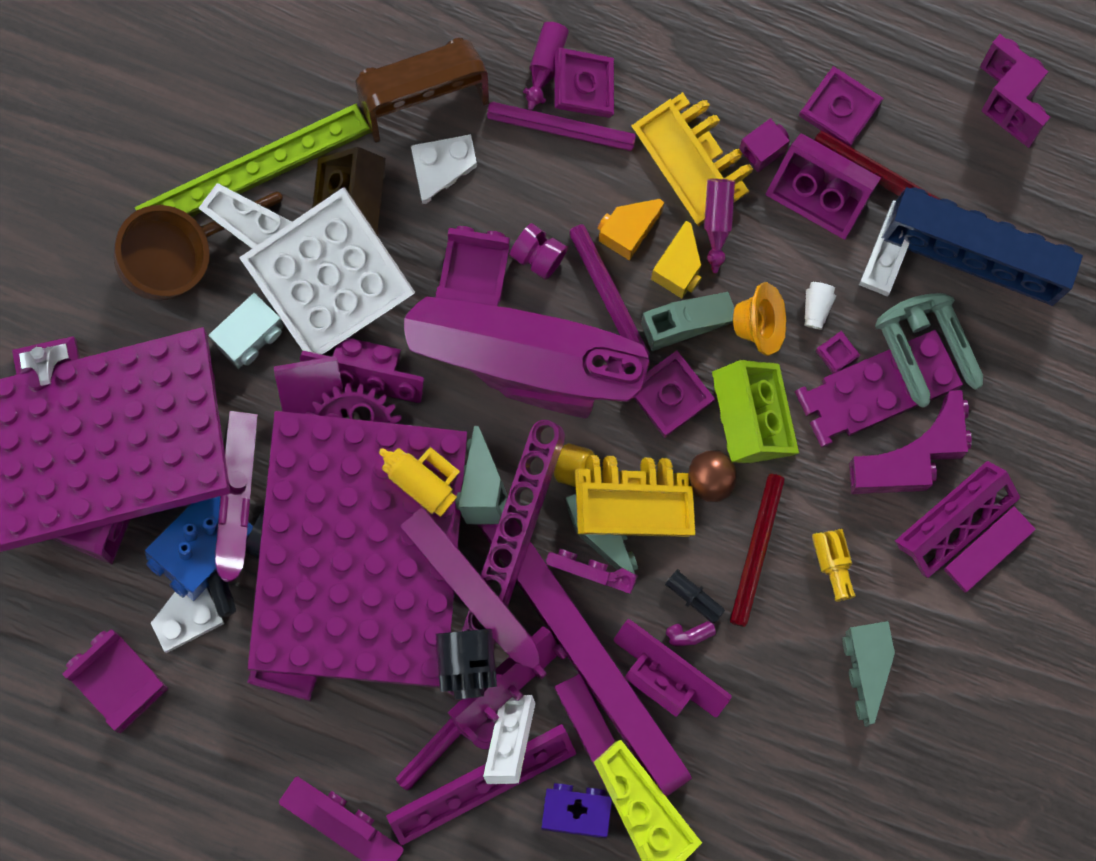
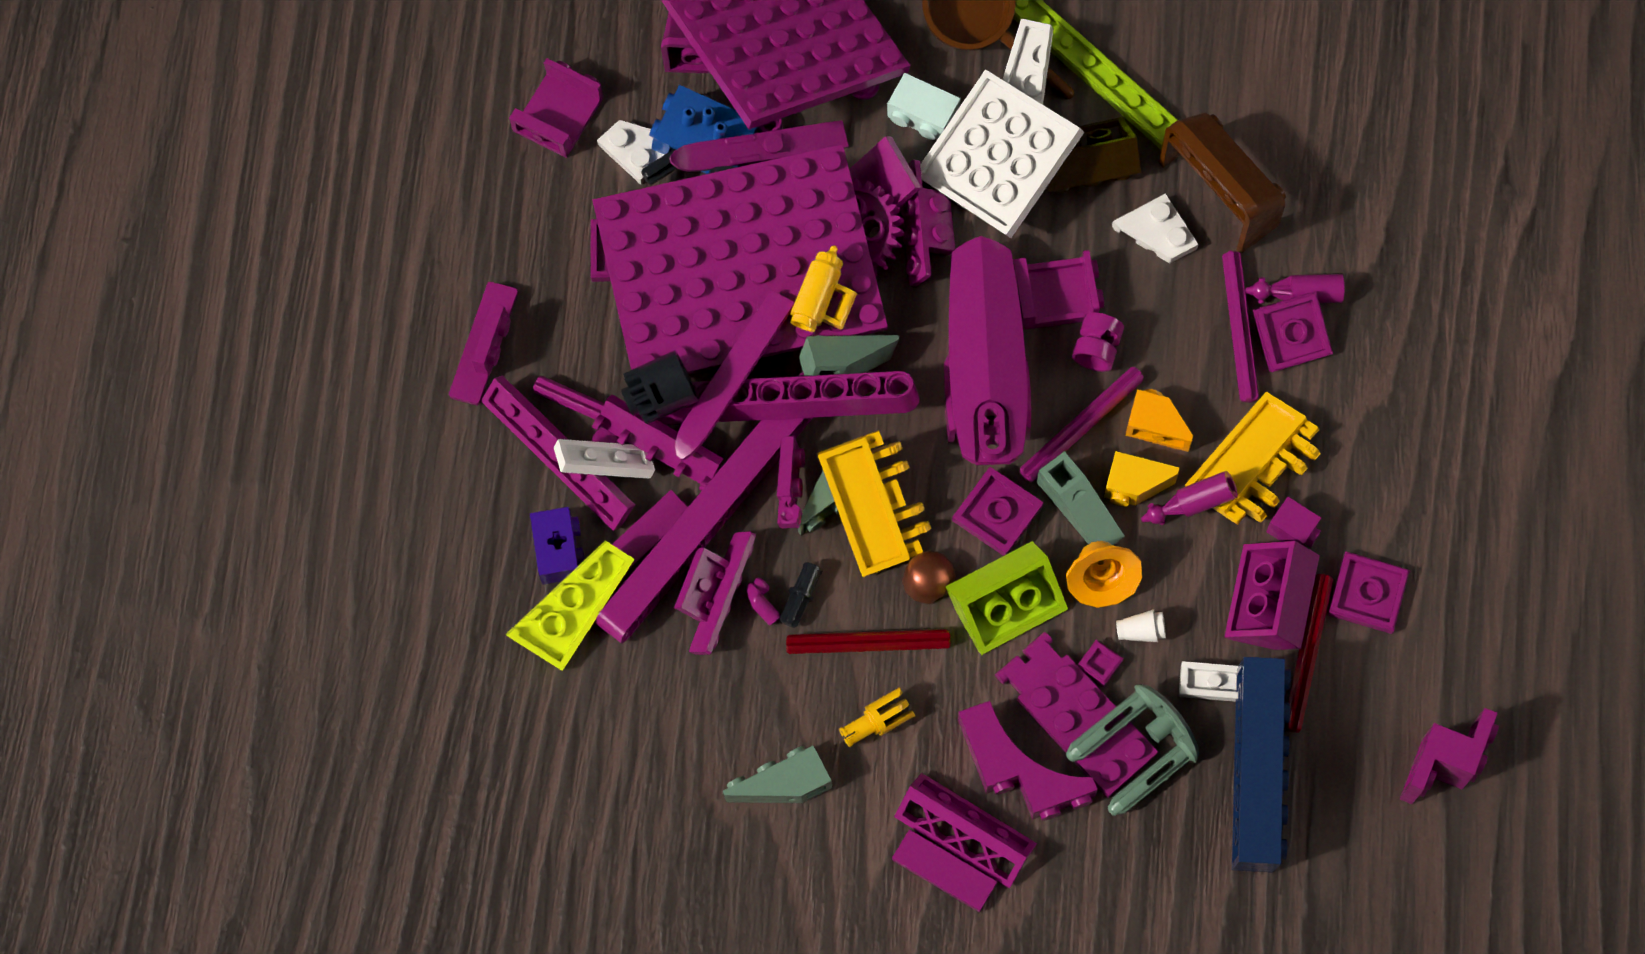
camera: 80 degrees right, 5 degrees down
(570, 459) = (892, 431): yellow head -> none

